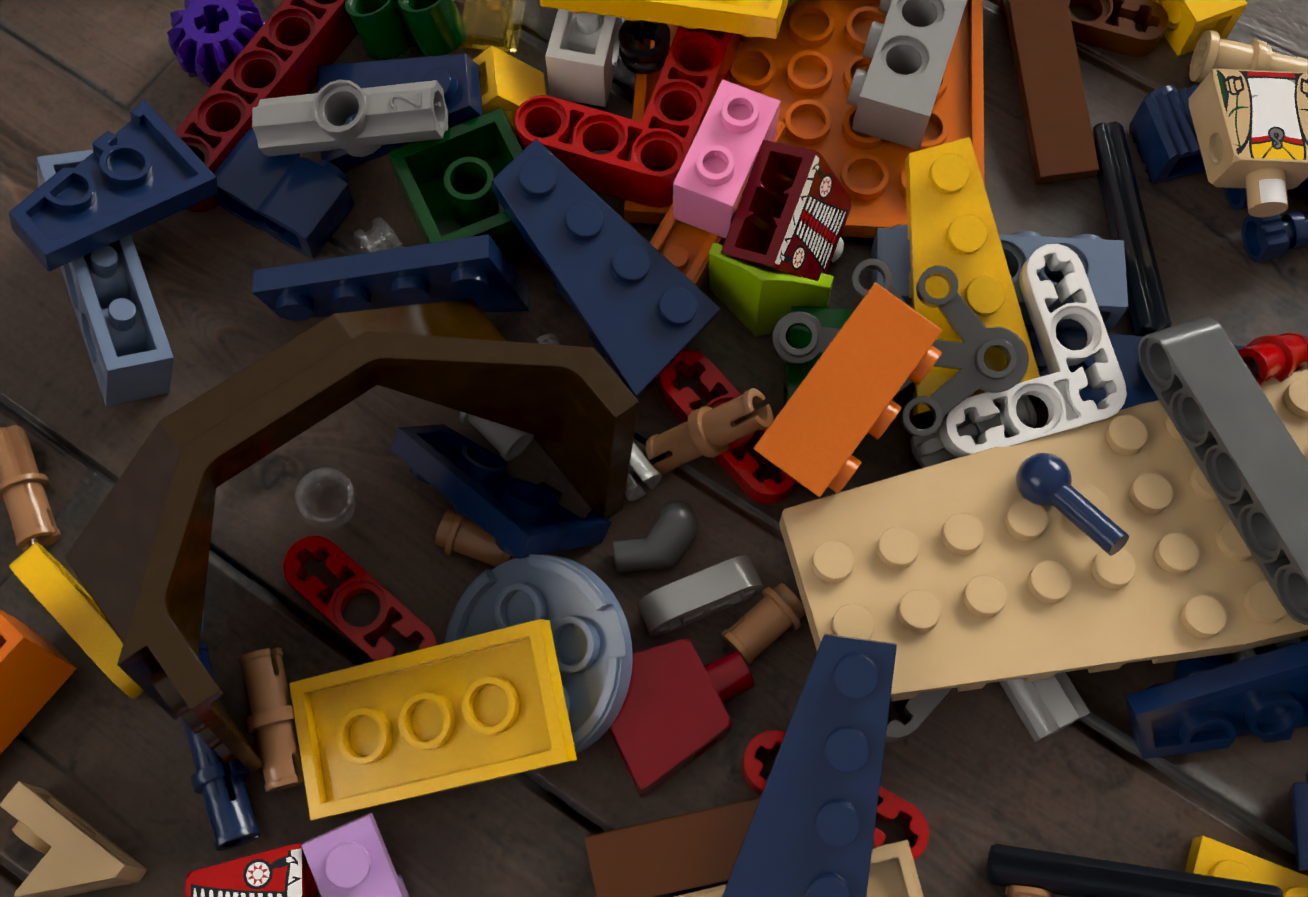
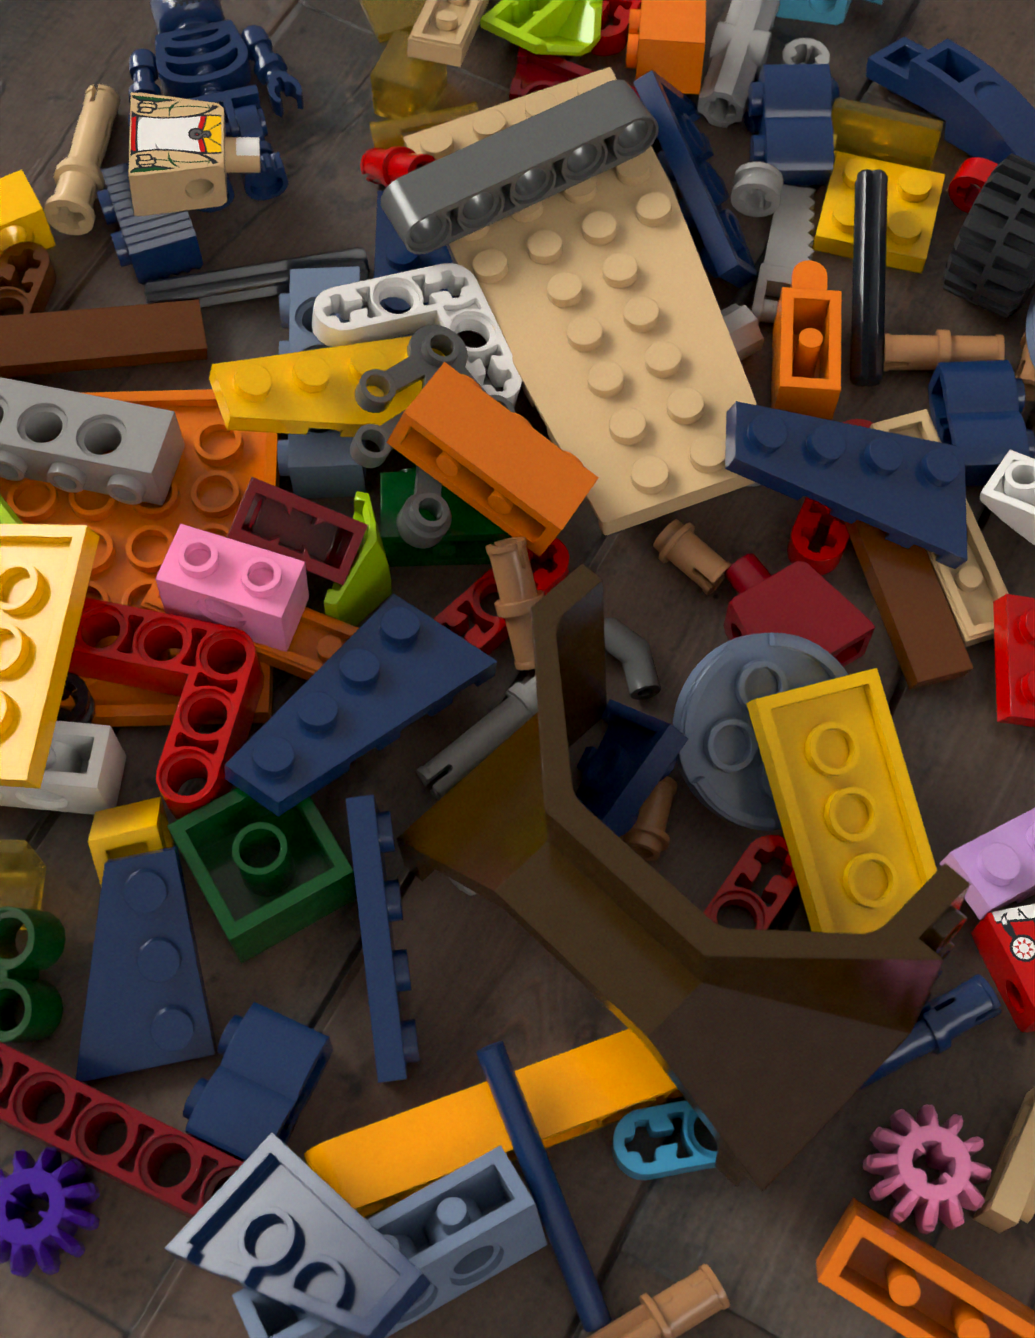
camera: 95 degrees left, 5 degrees down
(74, 612) = (797, 1205): yellow beam -> none
(84, 768) = (909, 1185): none -> bright pink gear
(141, 393) = (544, 1186): none -> dark blue bar
(208, 348) = (419, 1146): none -> light orange beam
(317, 120) = (201, 1026): light grey piece -> none
(378, 238) = (324, 963): clear bush -> none
(699, 595) = (676, 608): light grey beam -> none
(1022, 782) = (807, 345): none -> orange brick
(1047, 482) = (550, 315): dark blue bar -> none
(1172, 800) = (787, 246): none -> light grey piece
(1270, 772) = (761, 177): none -> light grey bush

